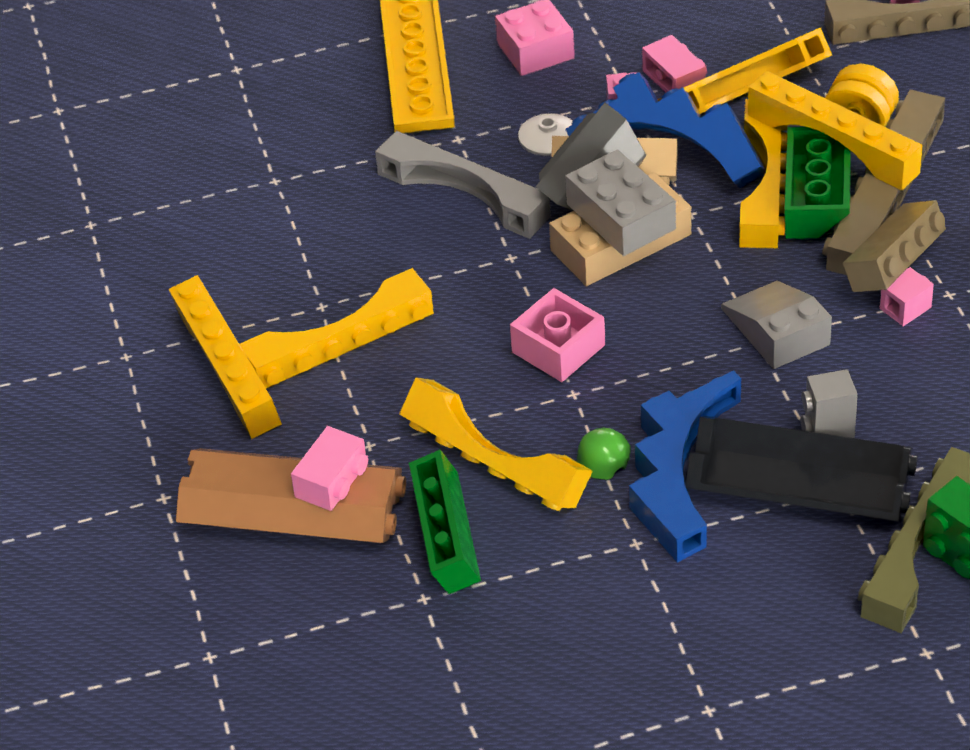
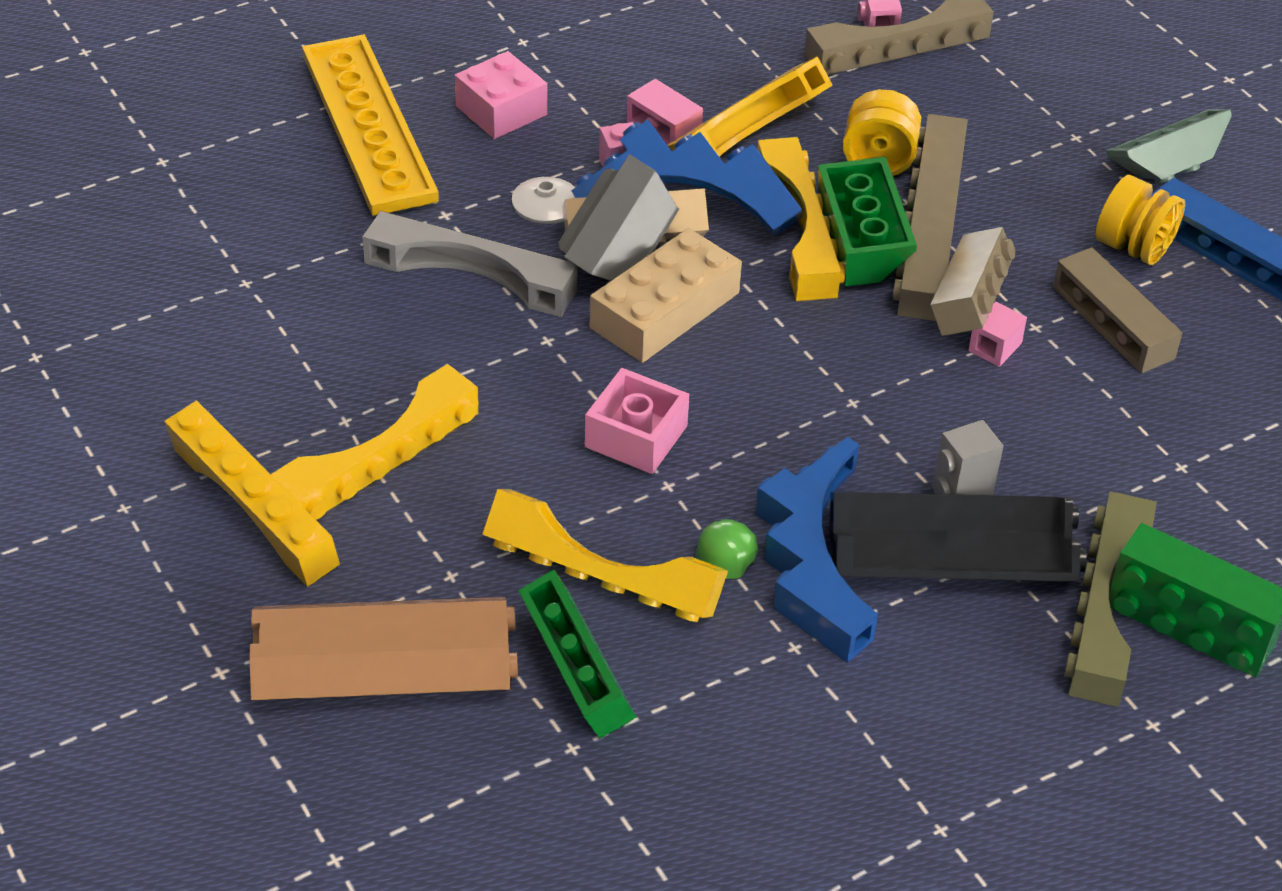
camera: 20 degrees left, 0 degrees up
(329, 468) = (433, 610): bright pink brick -> none
(620, 202) = (671, 263): light grey brick -> none
(780, 322) = (872, 376): light grey slope -> none
(883, 151) = (933, 181): yellow arch -> none

